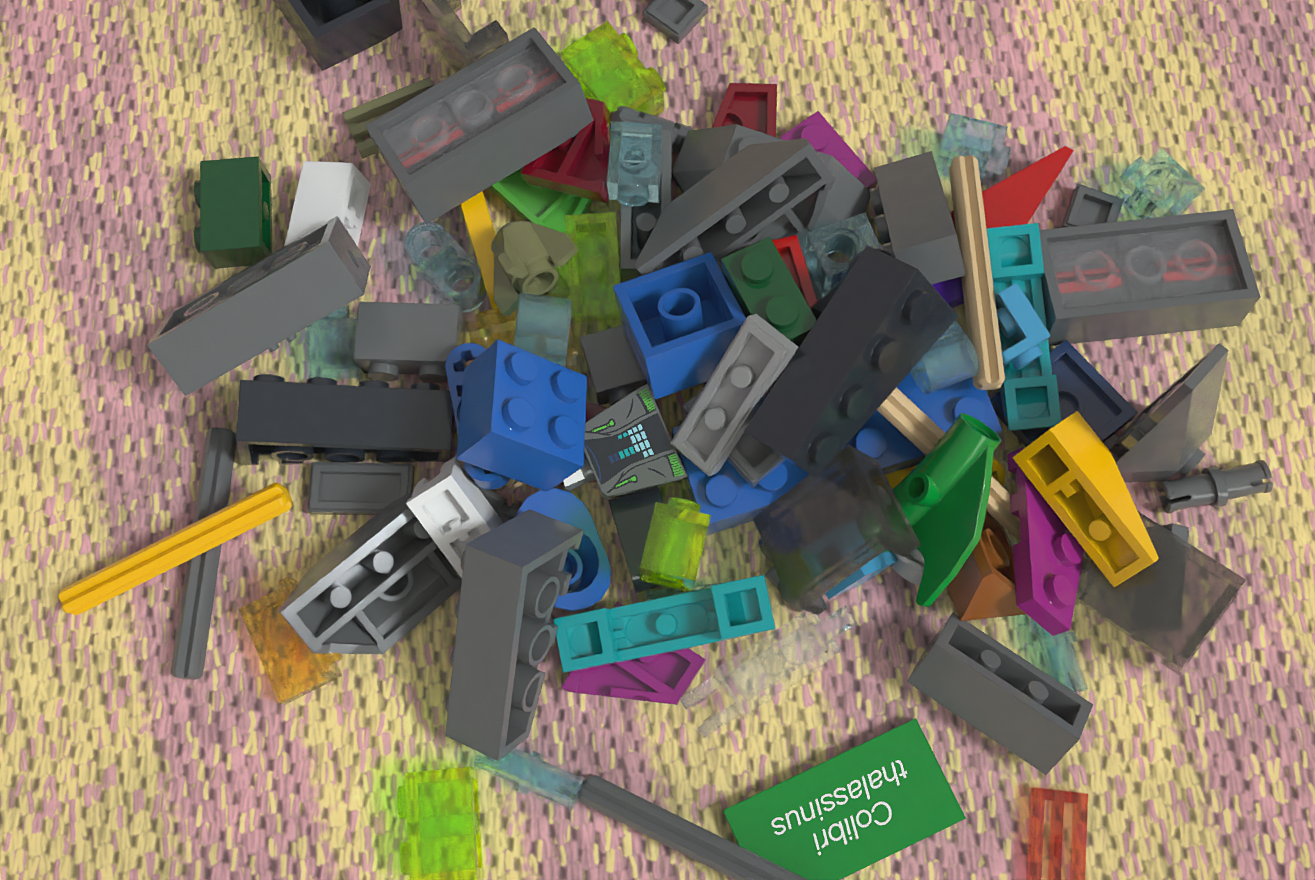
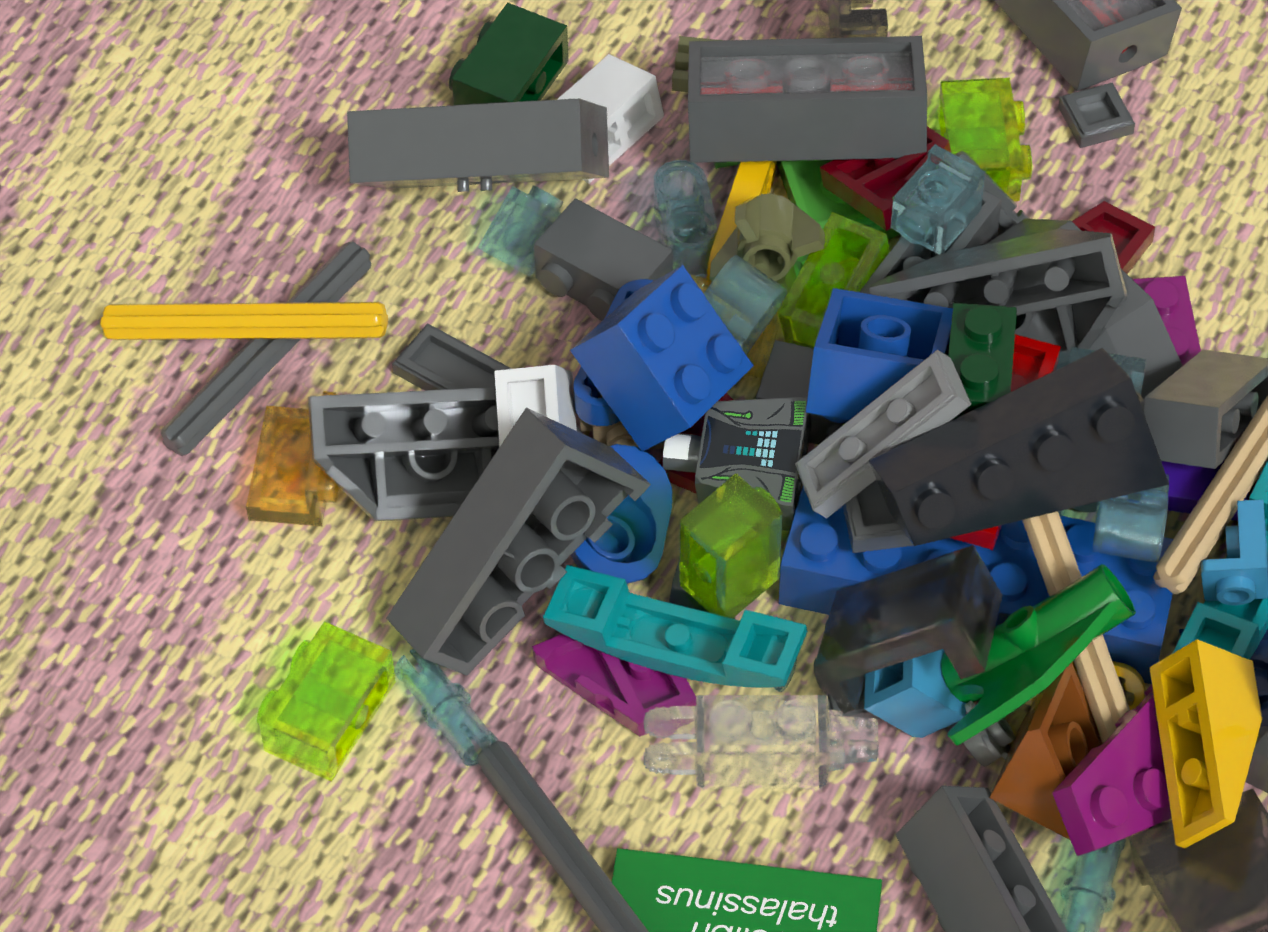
camera: 30 degrees right, 20 degrees down
(342, 421) = (473, 288): black wedge -> none

